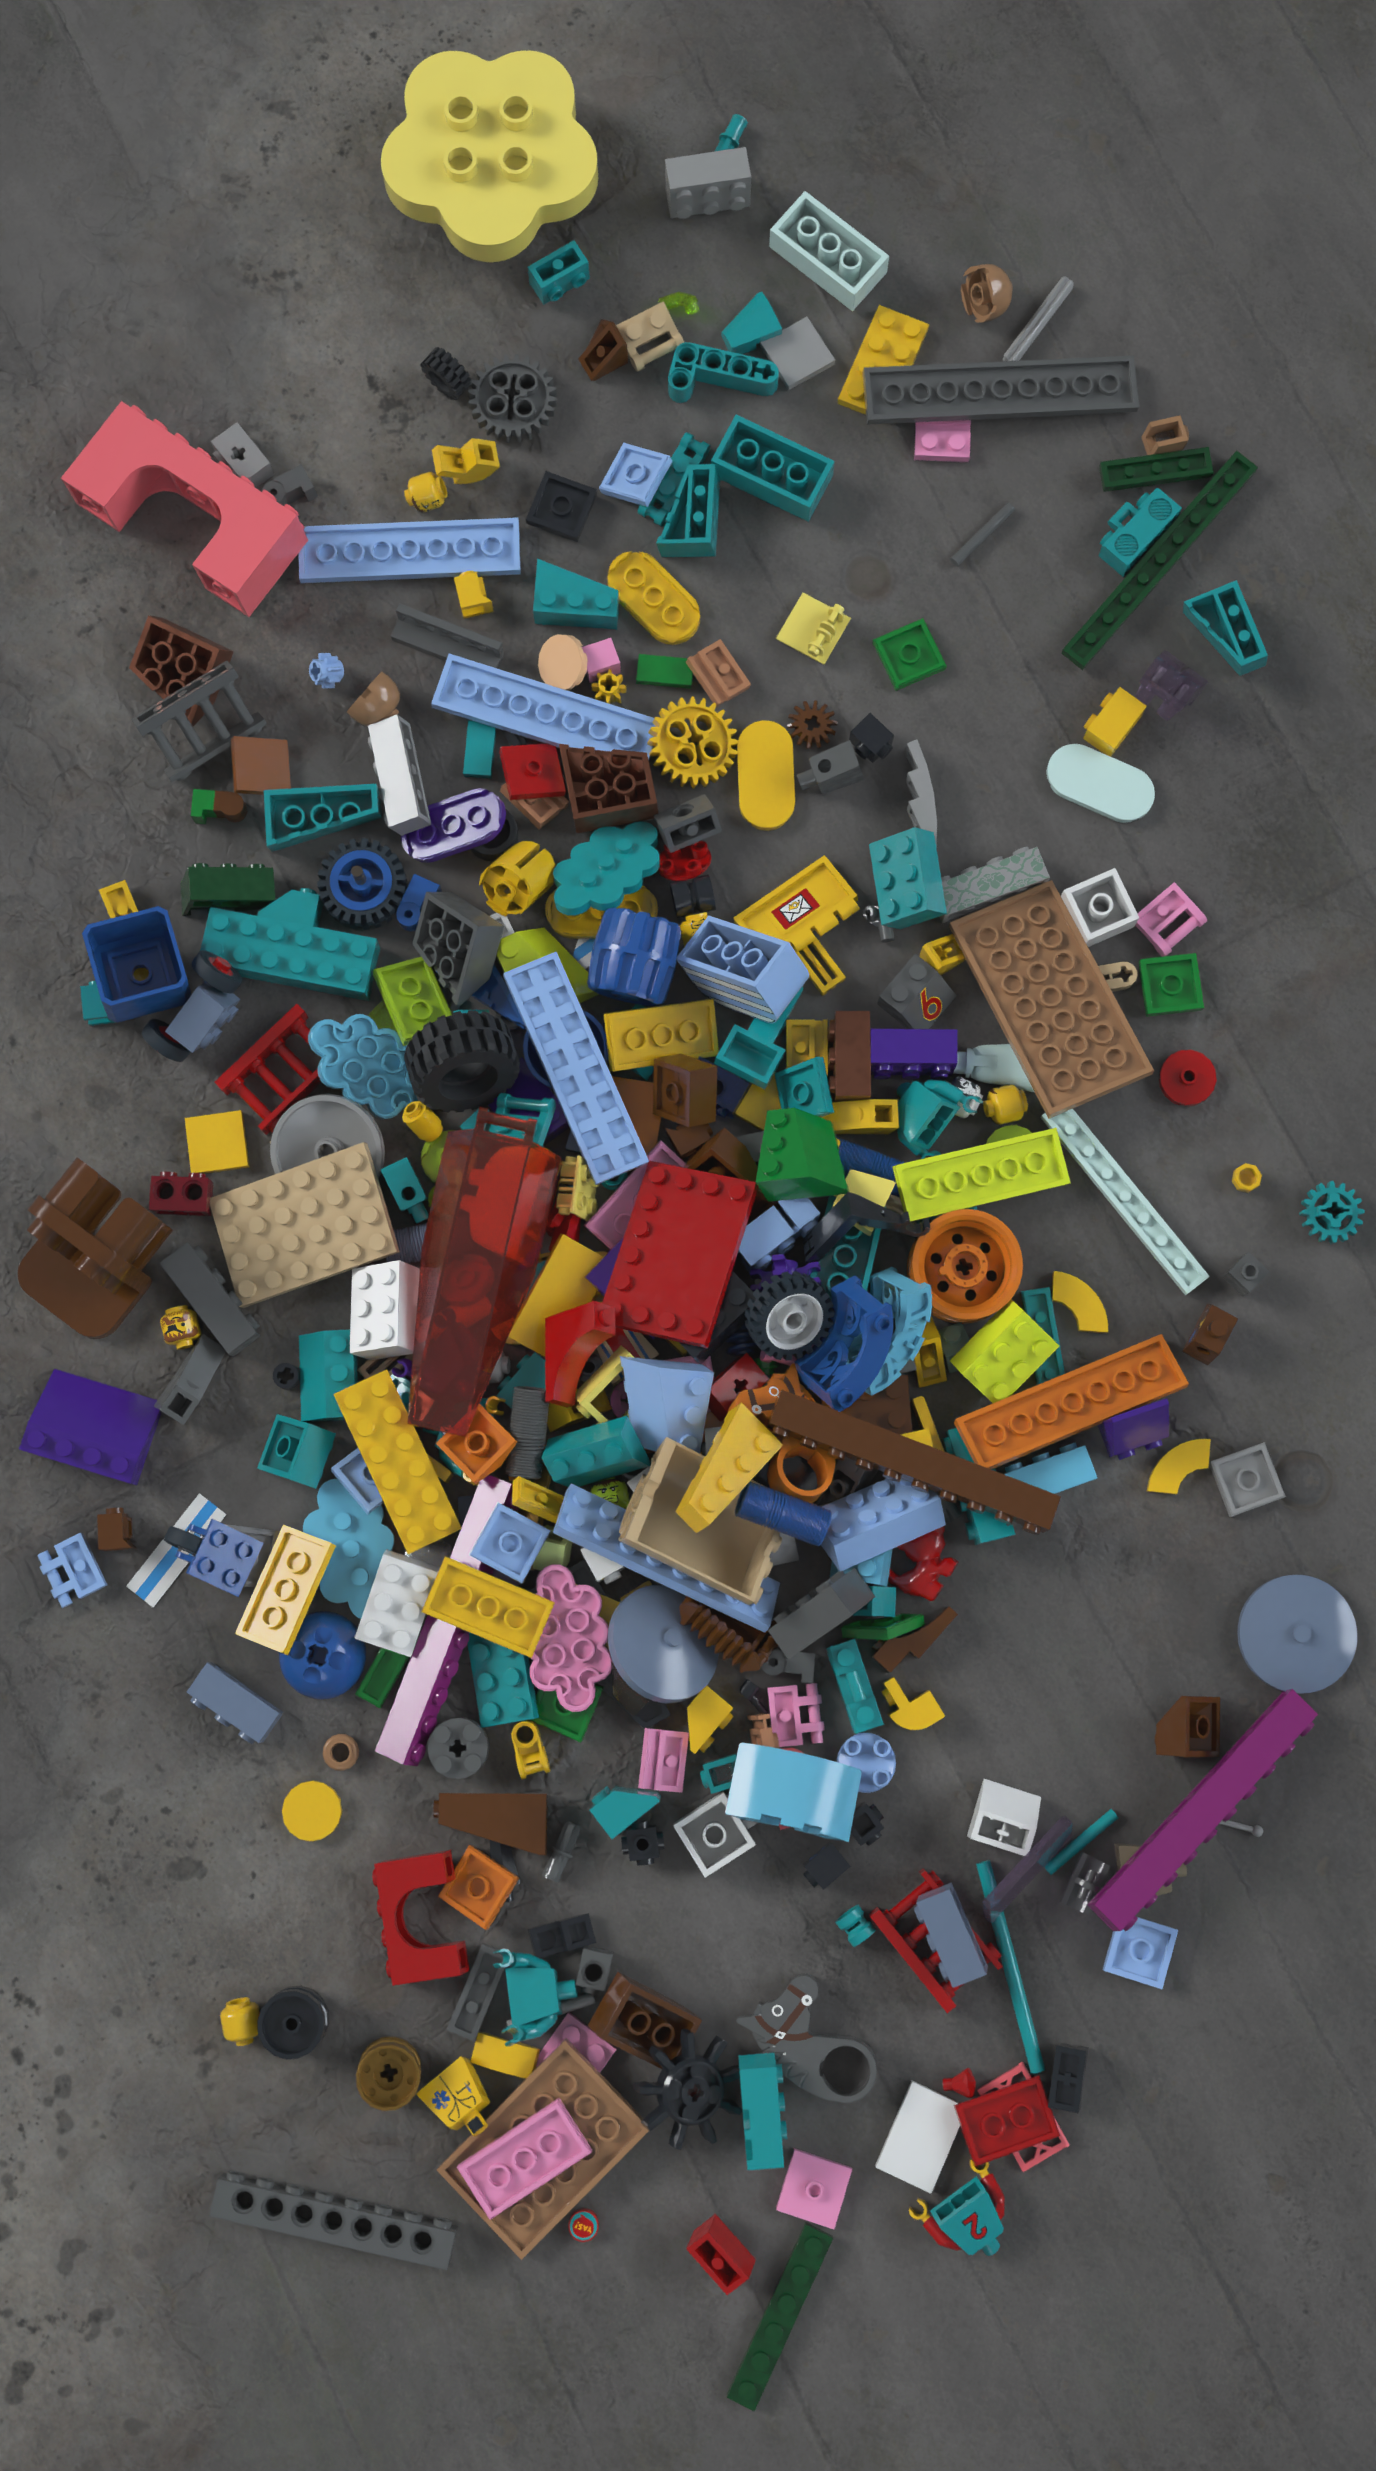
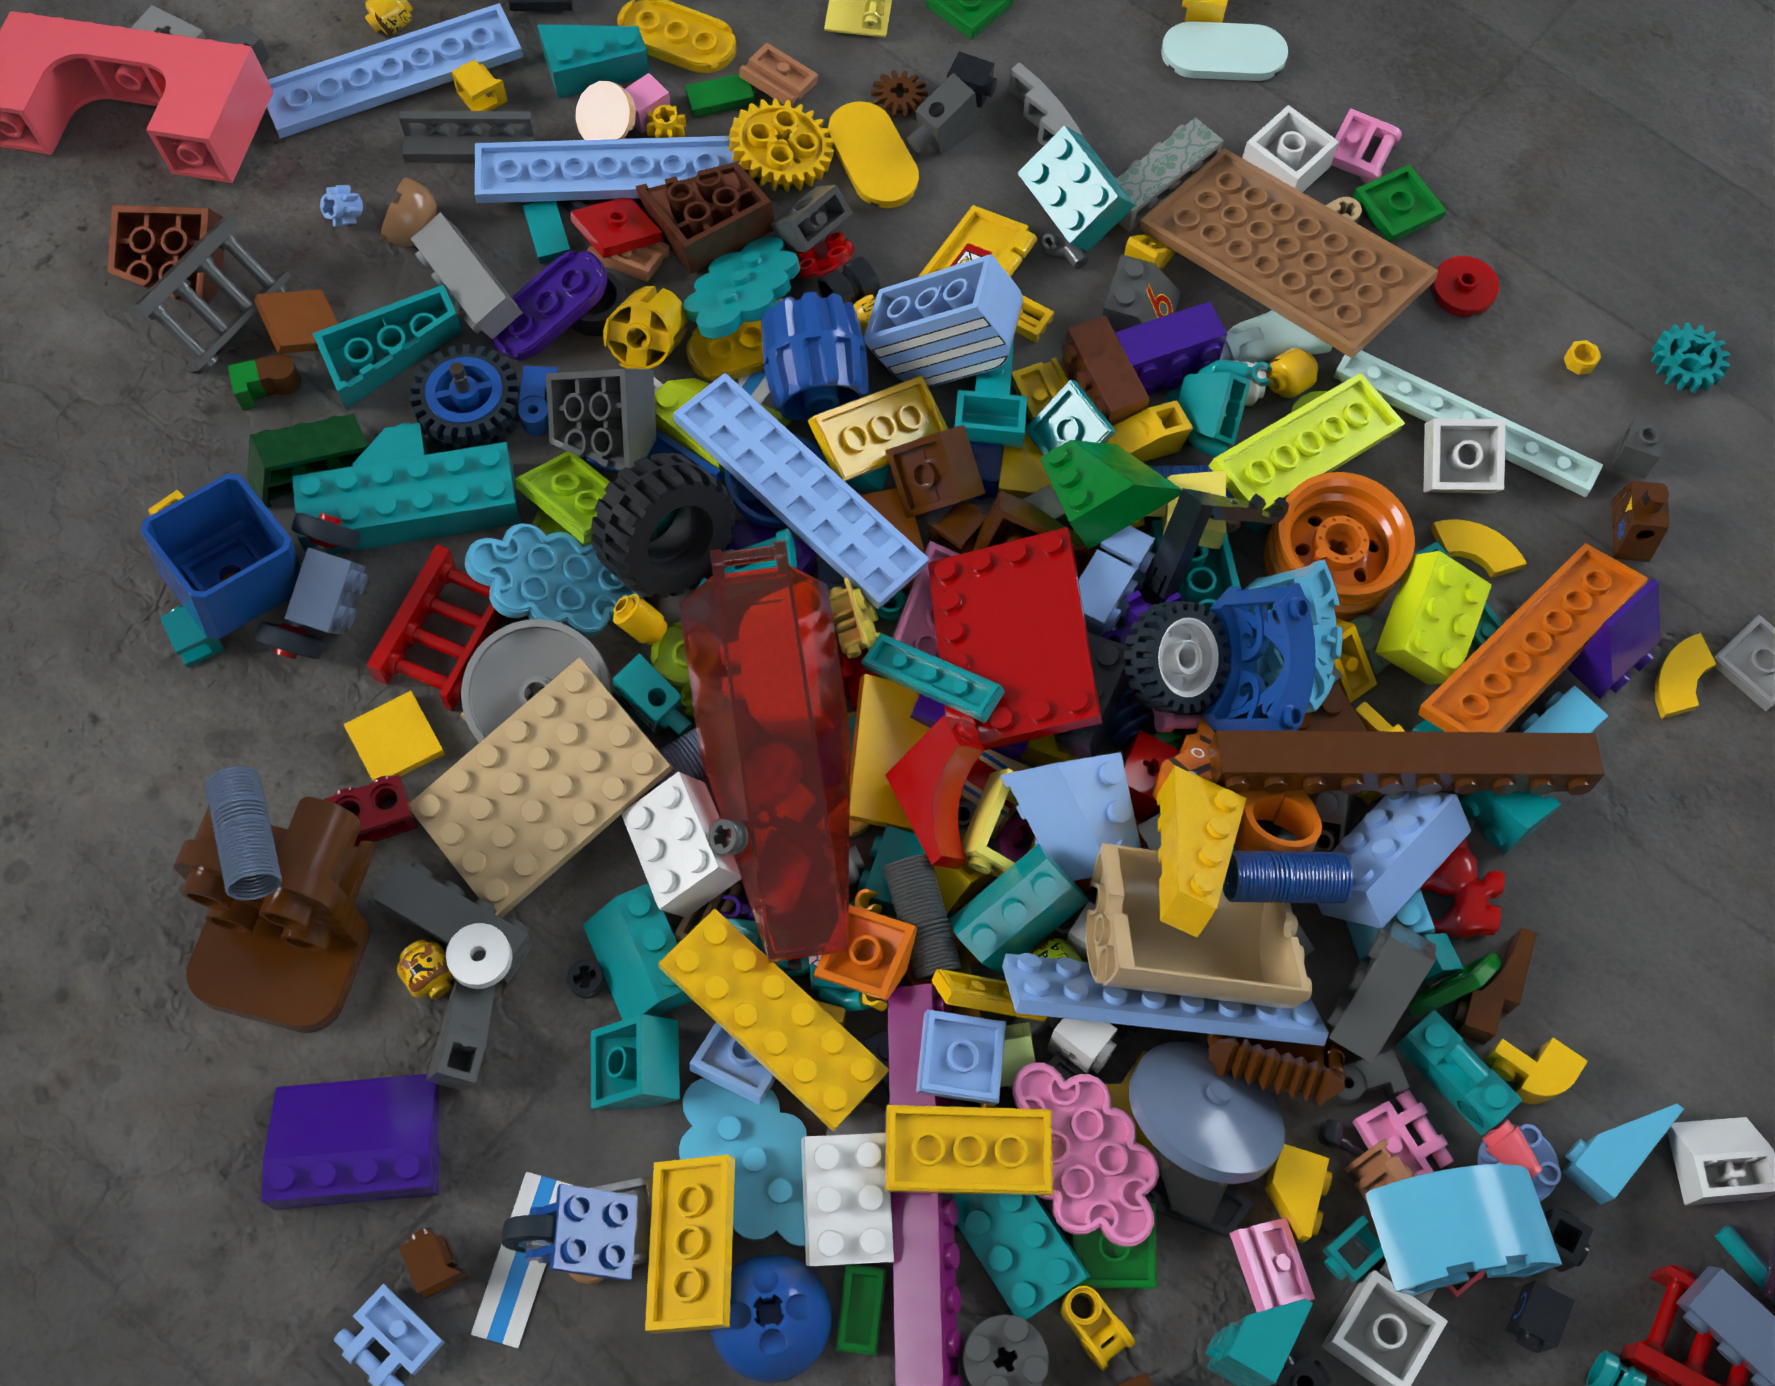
camera: 25 degrees left, 15 degrees down
(77, 1223) = (243, 833): none -> sand blue piece
(216, 1349) = (484, 972): none -> white piece
(406, 1323) = (719, 834): none -> dark grey bush
(607, 1259) = (933, 677): none -> teal tile
(860, 1753) = (1510, 1147): none -> coral cone
(932, 1784) = (1612, 1157): none -> medium azure slope
(1099, 1230) = (1464, 455): none -> white brick

